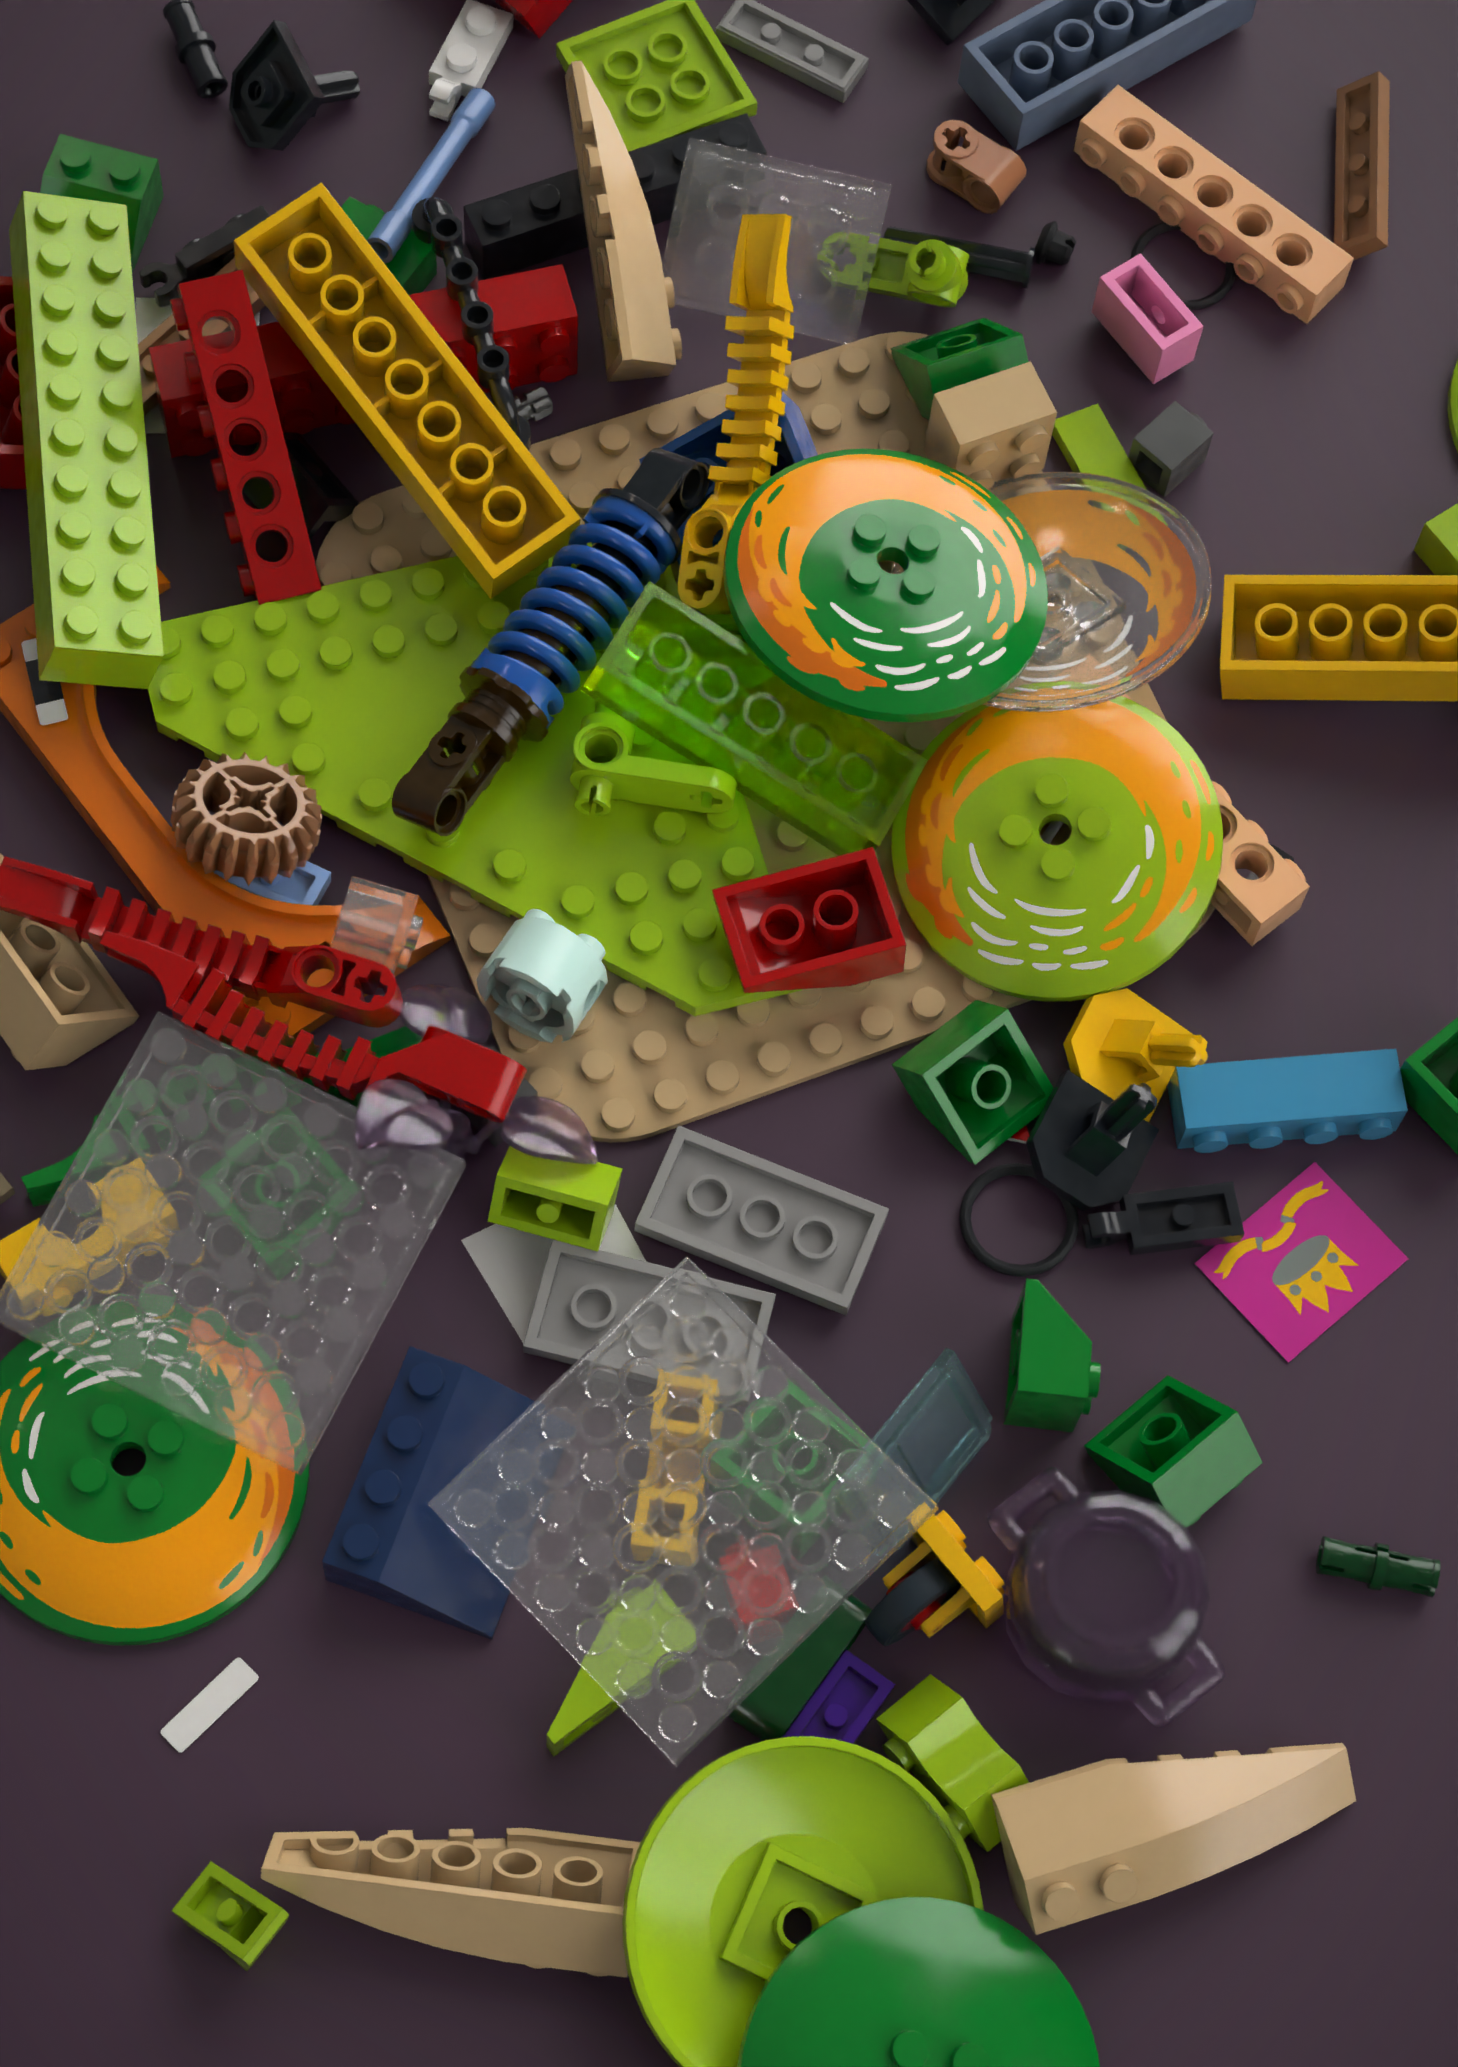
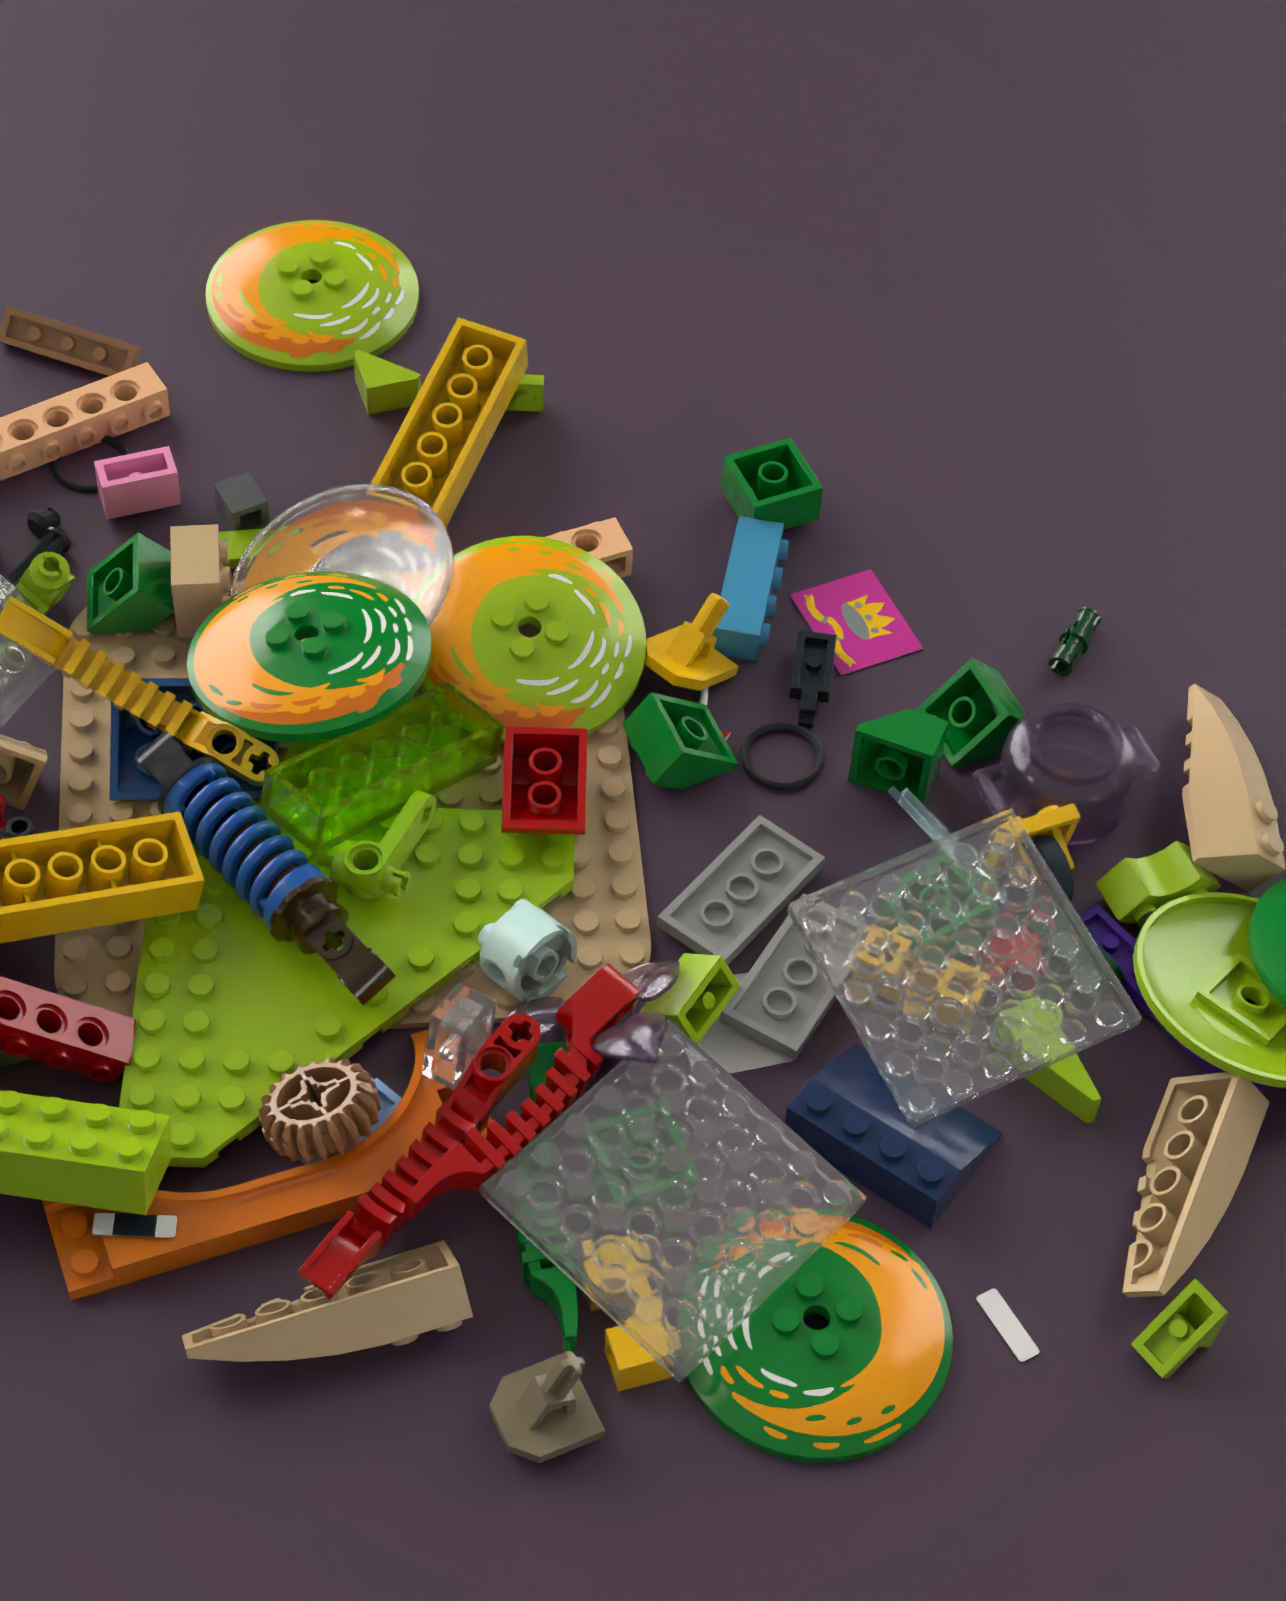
camera: 70 degrees left, 15 degrees down
(1089, 1143) = (746, 690): black piece -> none

